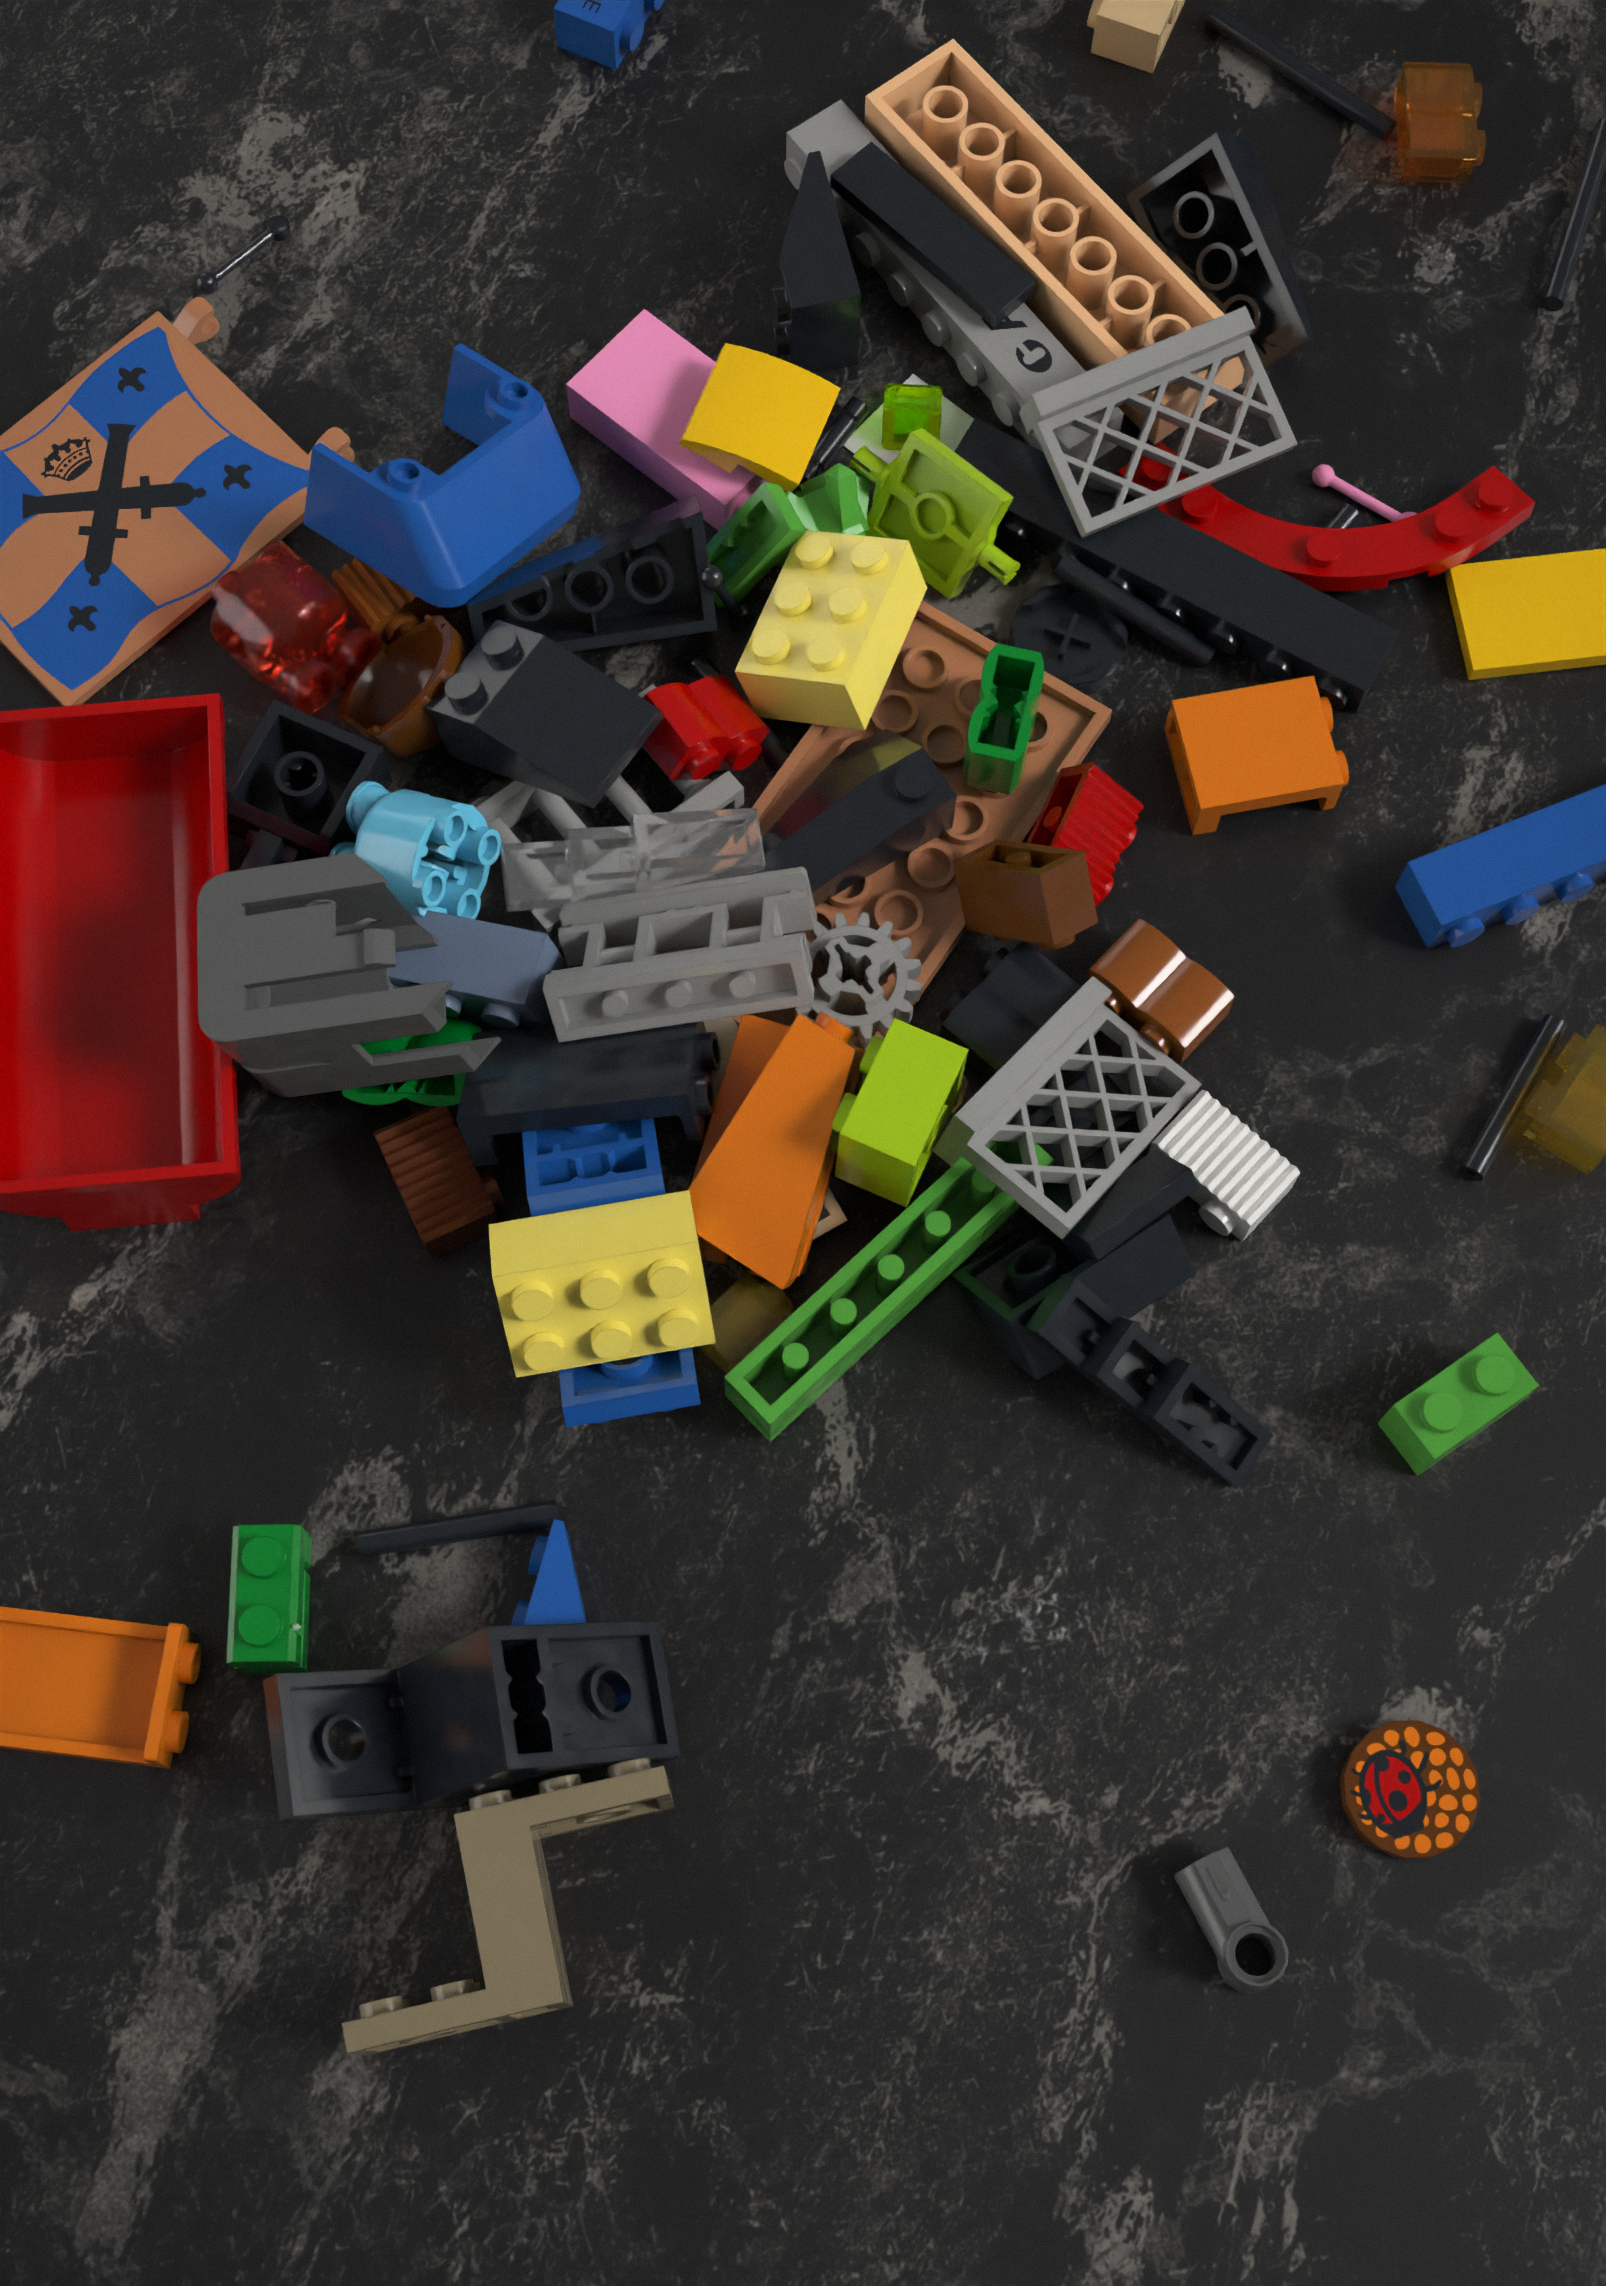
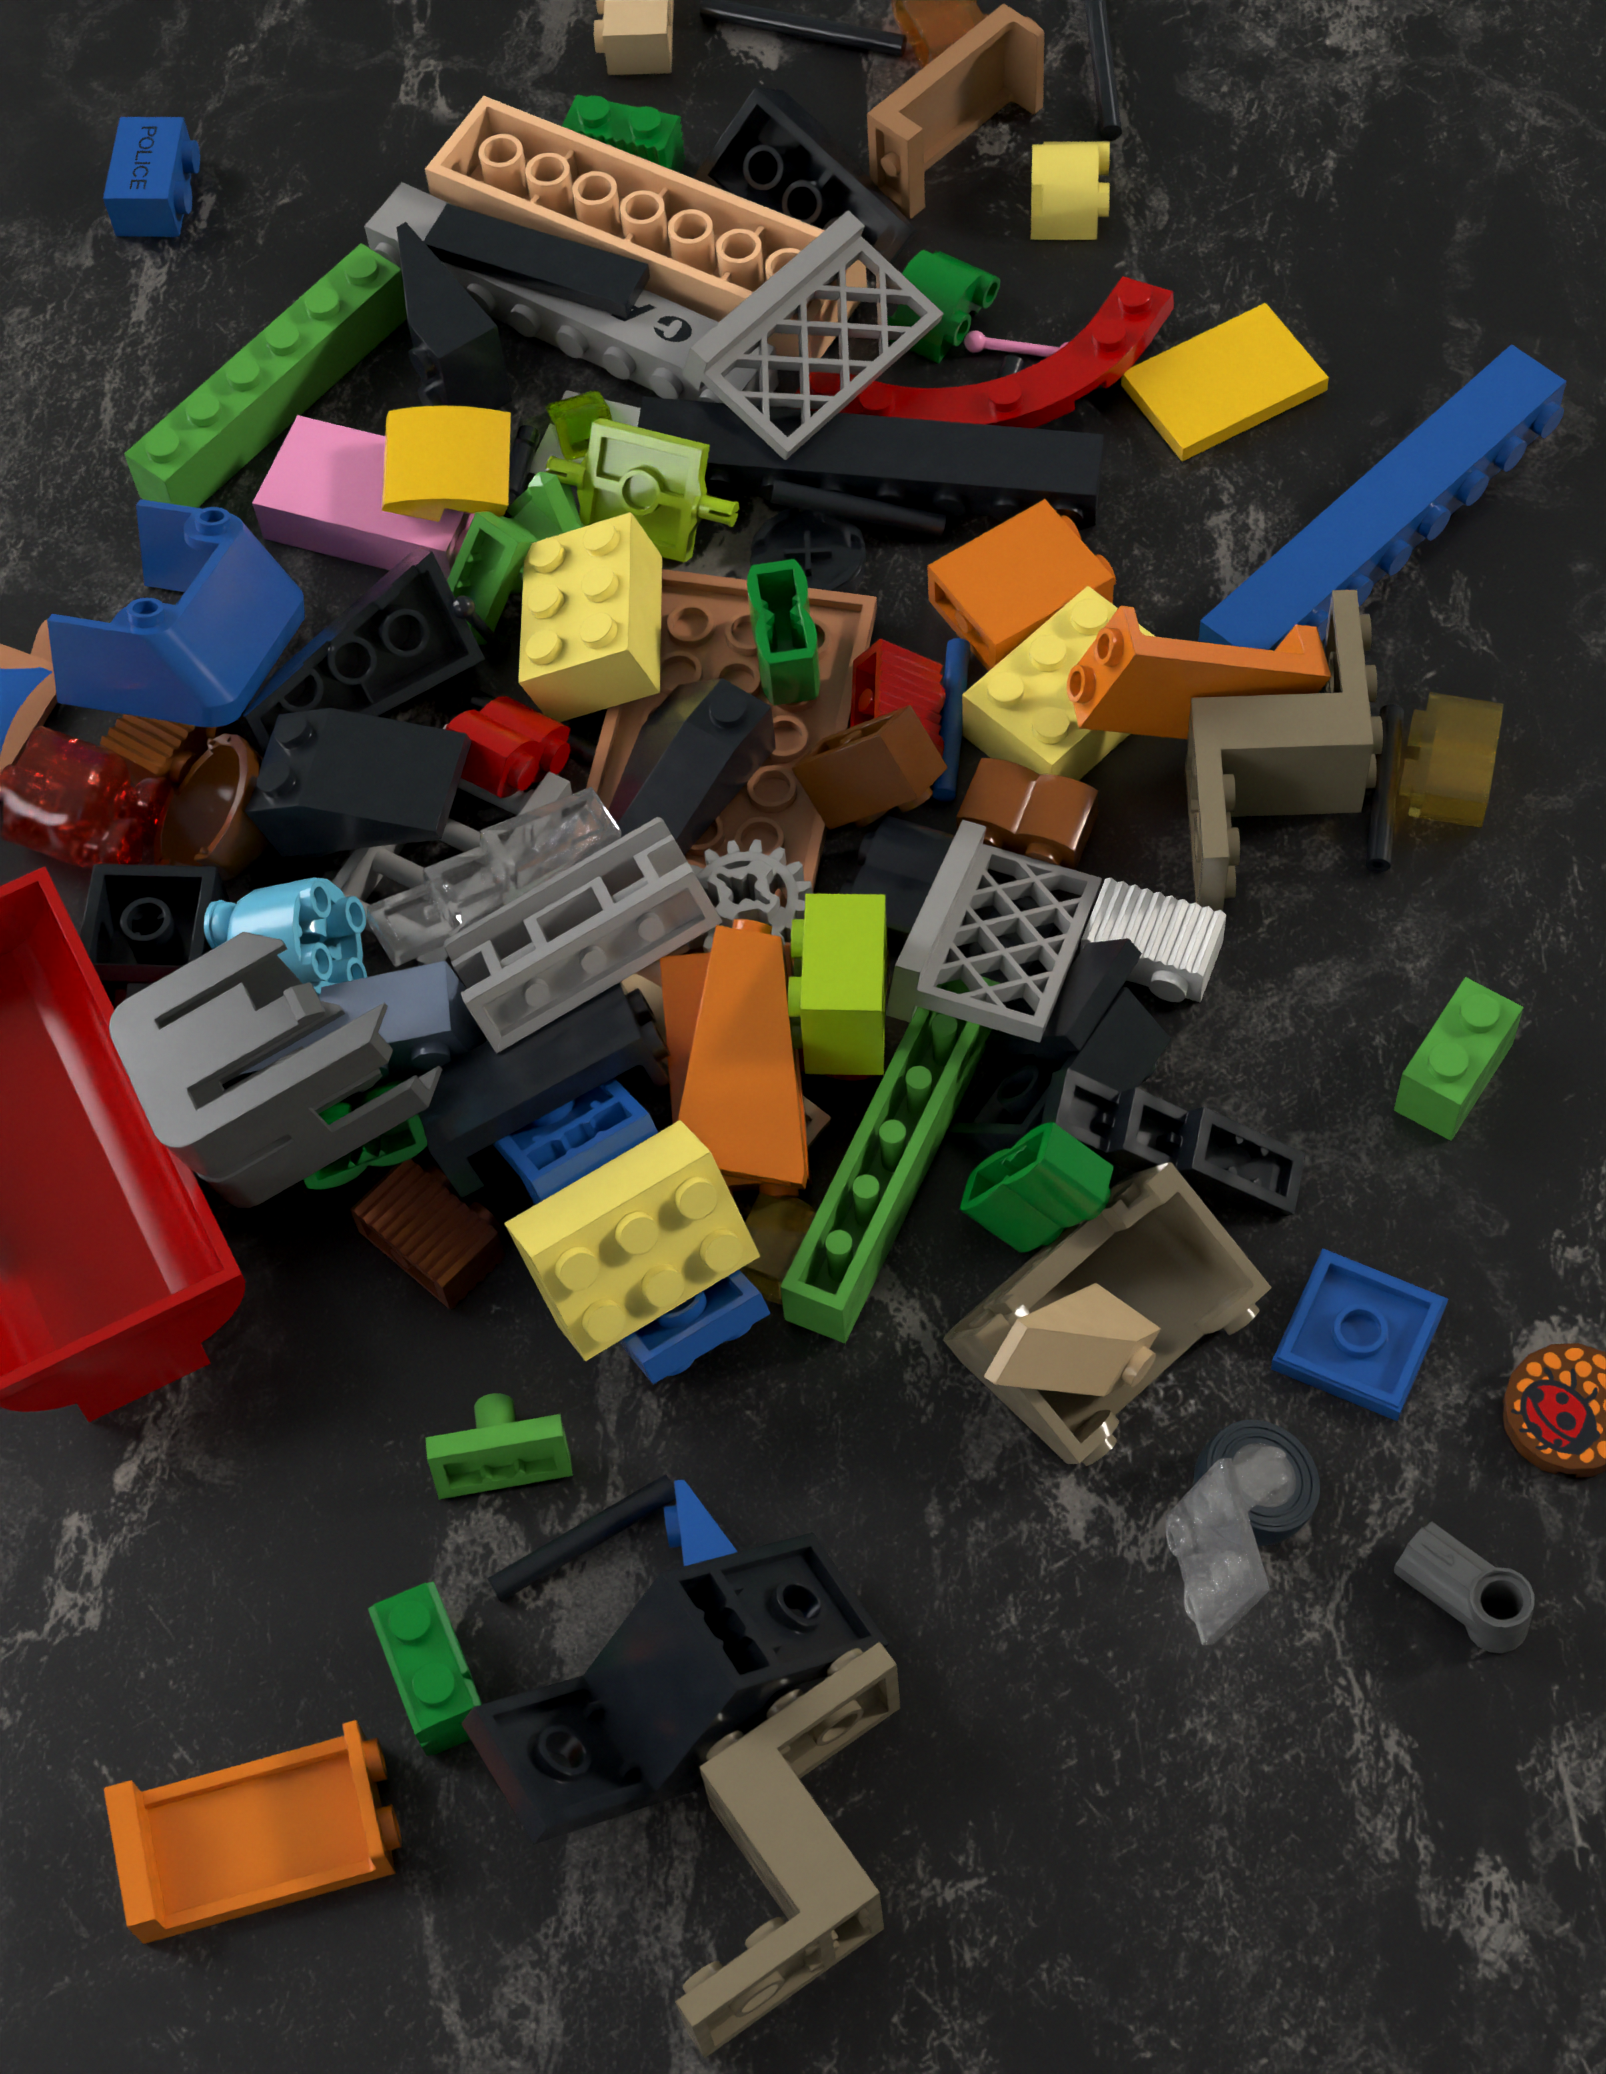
camera: 15 degrees left, 10 degrees down
(415, 1417) = (498, 1451): none -> bright green tile
(633, 261) = (270, 381): none -> bright green brick
(971, 1550) = (1077, 1346): none -> tan slope
(1002, 1376) = (1037, 1188): none -> green brick
(1016, 1515) = (1153, 1252): none -> dark tan windscreen
(1075, 1744) = (1248, 1491): none -> clear plate
(1081, 128) = (629, 128): none -> green brick
(1134, 857) = (955, 685): none -> blue bar
(1245, 1632) = (1359, 1334): none -> blue tile
(1253, 882) = (1023, 703): none -> light yellow brick
(1318, 415) = (953, 289): none -> green cylinder
(1367, 940) = (1148, 681): none -> orange panel
(1405, 212) = (951, 99): none -> medium nougat panel
(1426, 1030) = (1281, 753): none -> dark tan bracket
(1481, 349) = (1067, 189): none -> light yellow cylinder

